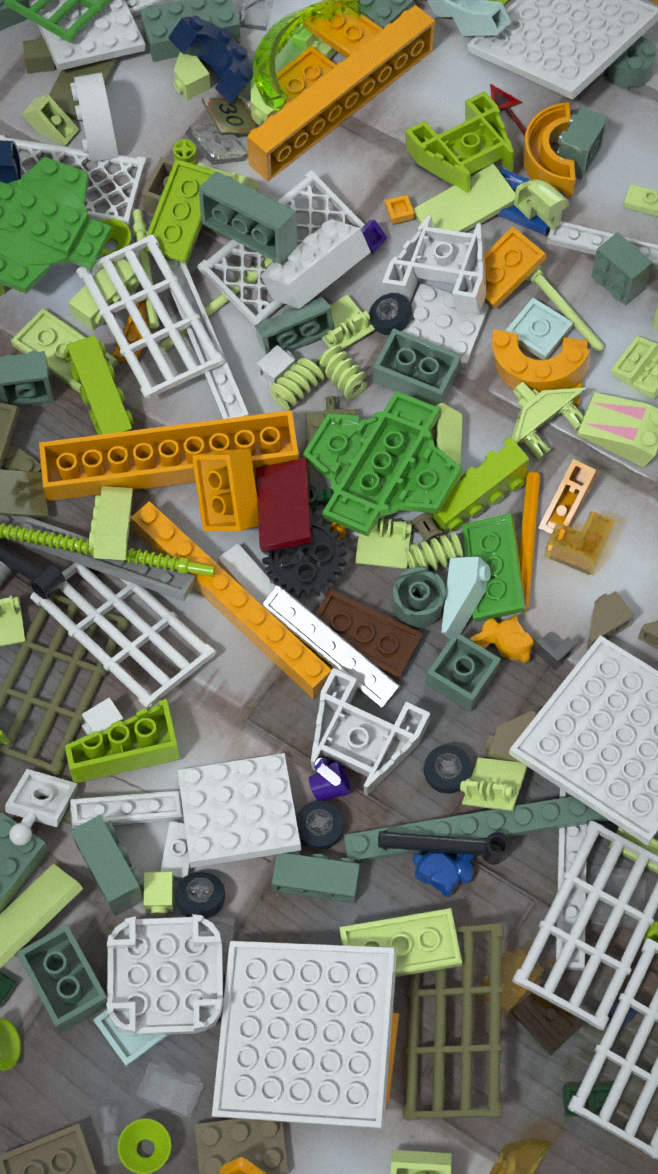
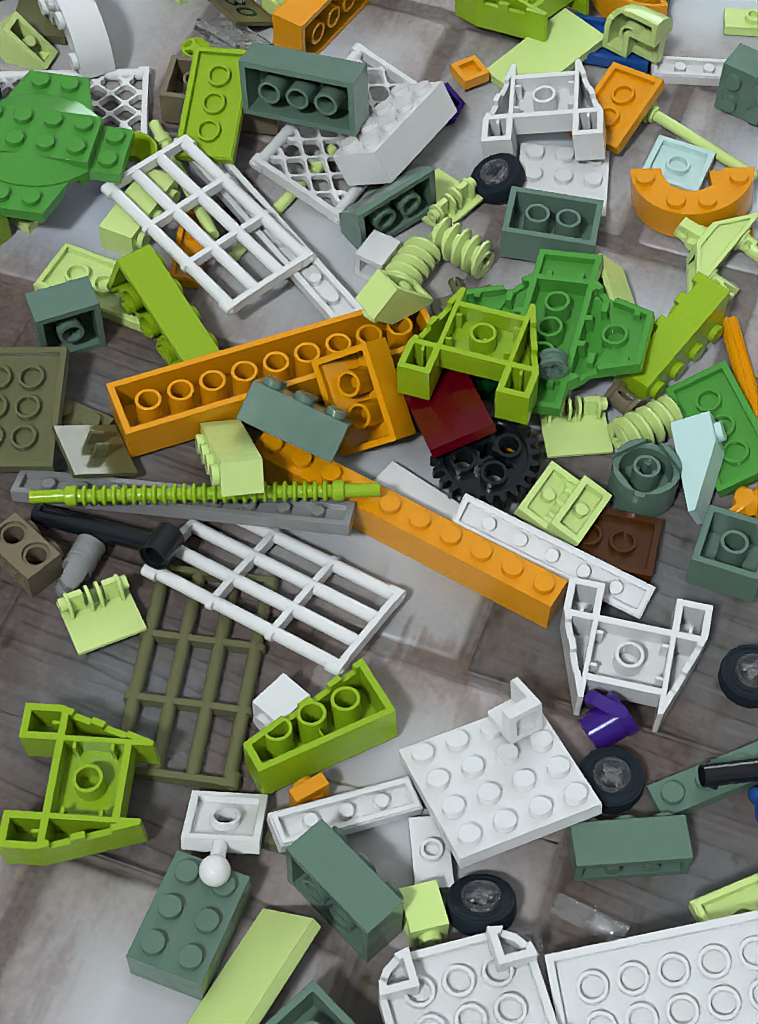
camera: 15 degrees left, 10 degrees down
(105, 787) = (308, 790): none -> light orange plate
(167, 501) = (295, 417): none -> sand green brick
(263, 765) = (519, 715): none -> white panel
(268, 413) = (391, 297): none -> yellowish green slope
(273, 921) = (588, 918): none -> clear axle
(318, 469) = (479, 344): none -> lime wedge
(350, 606) = (563, 504): none -> yellowish green slope
(369, 495) = (552, 363): none -> sand green bush

